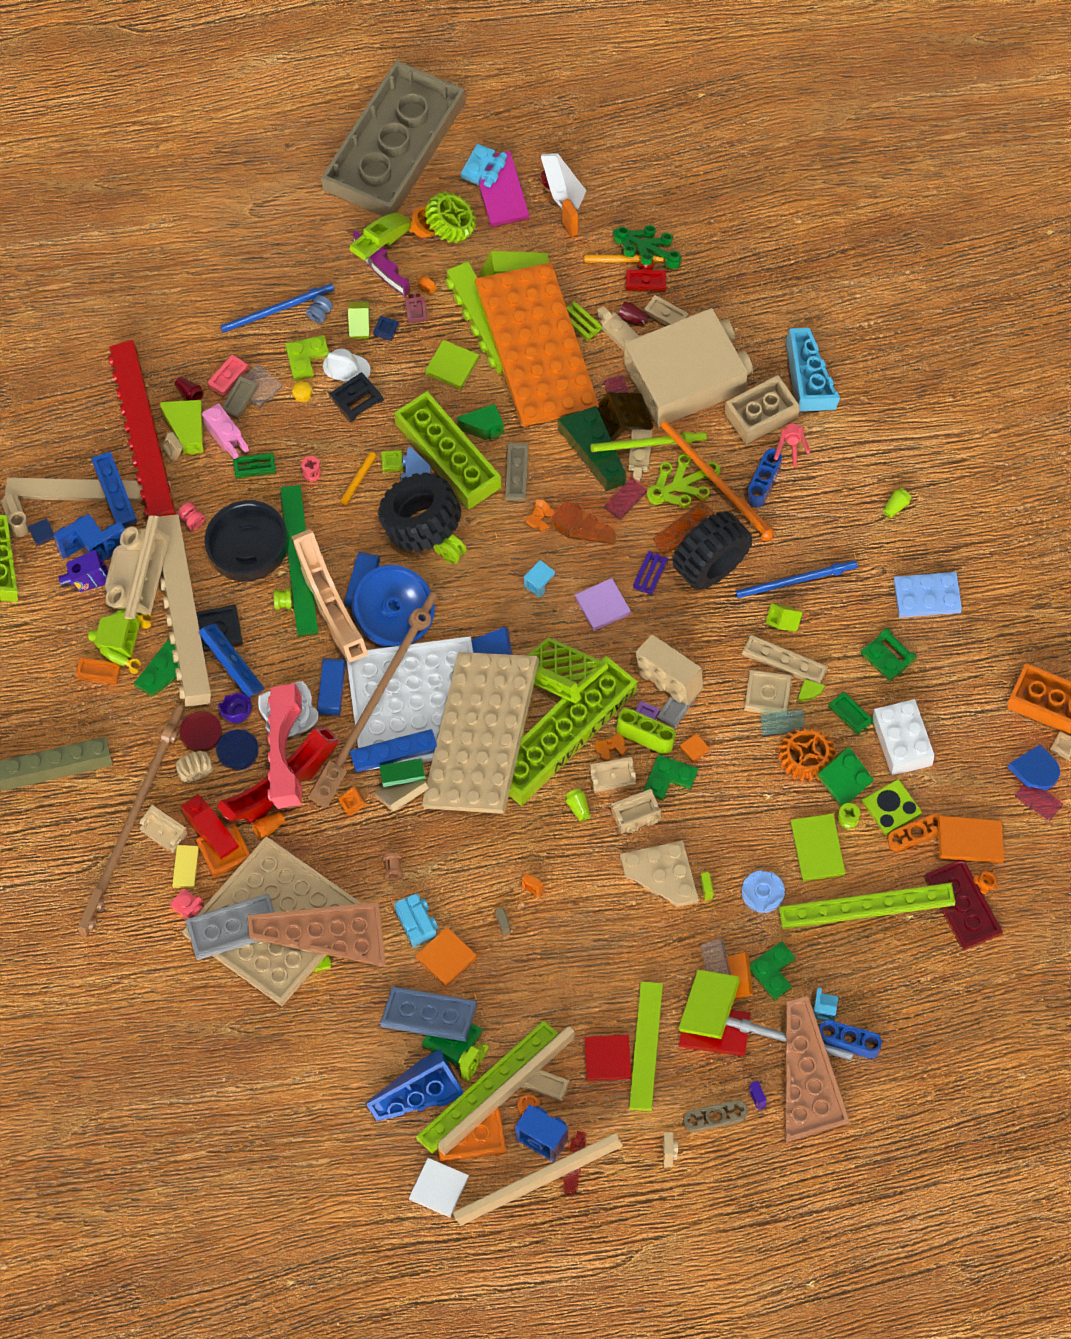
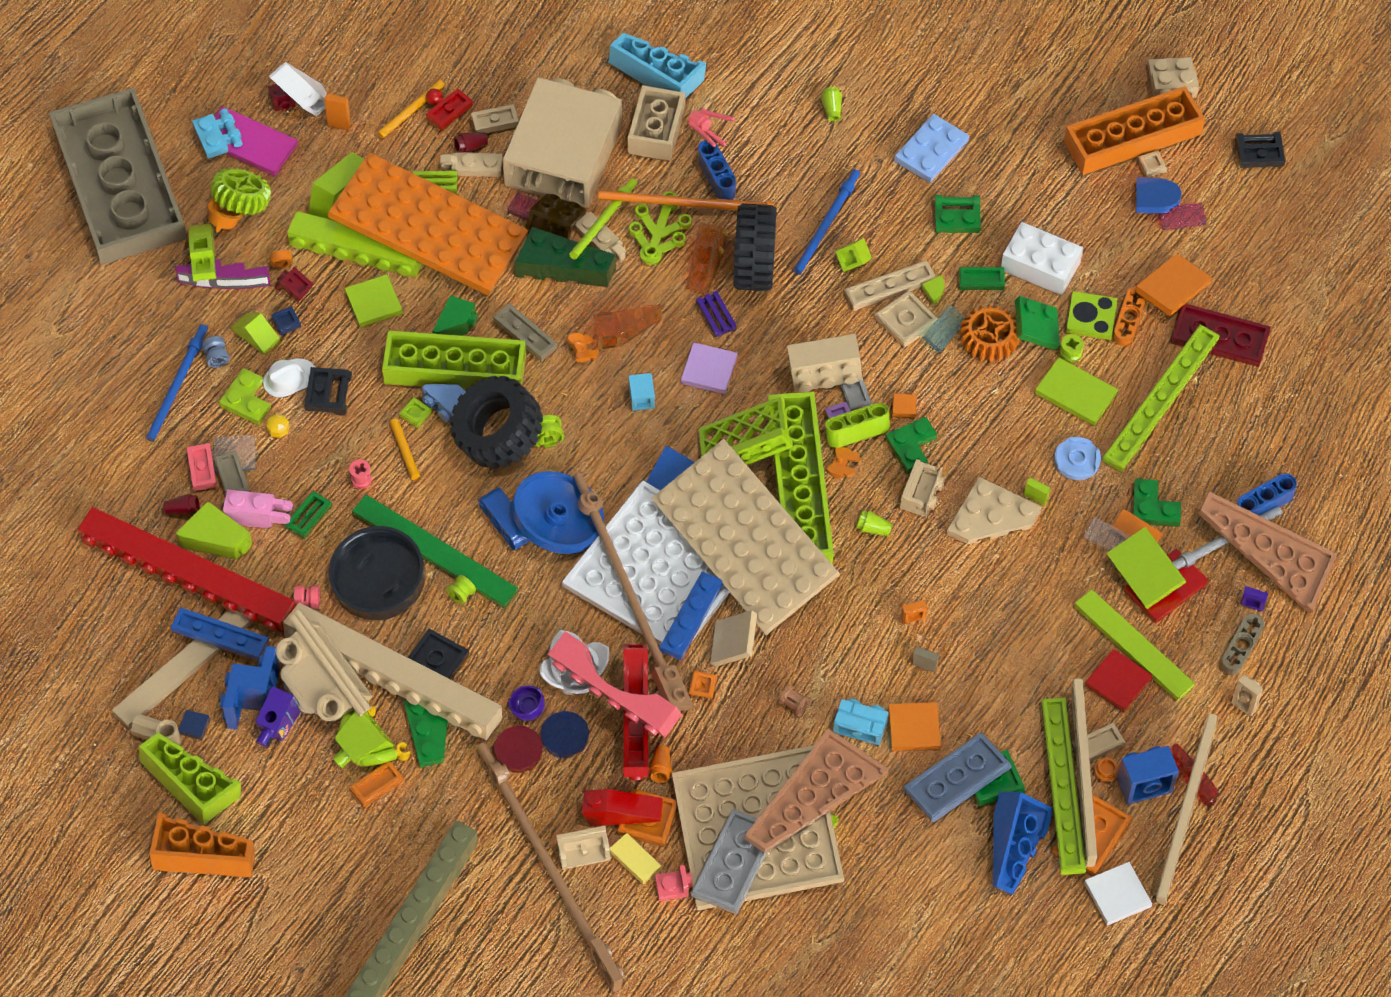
camera: 50 degrees left, 5 degrees down
(172, 446) = (225, 557): tan tile -> none
(194, 766) = (552, 775): tan gear -> none
(231, 660) = (474, 669): blue plate -> none
(327, 598) = (506, 555): light nougat arch -> none
(331, 686) = (581, 616): blue beam -> none
(402, 772) = (720, 624): green slope -> none
(471, 1060) = (1033, 776): lime wing -> none
(612, 775) = (872, 479): tan hinge -> none
(624, 237) = (419, 84): green plant -> none
(625, 499) = (630, 278): clear pink tile -> none
(825, 1006) = (1229, 493): medium azure panel -> none
(986, 882) = (1218, 303): orange plate -> none

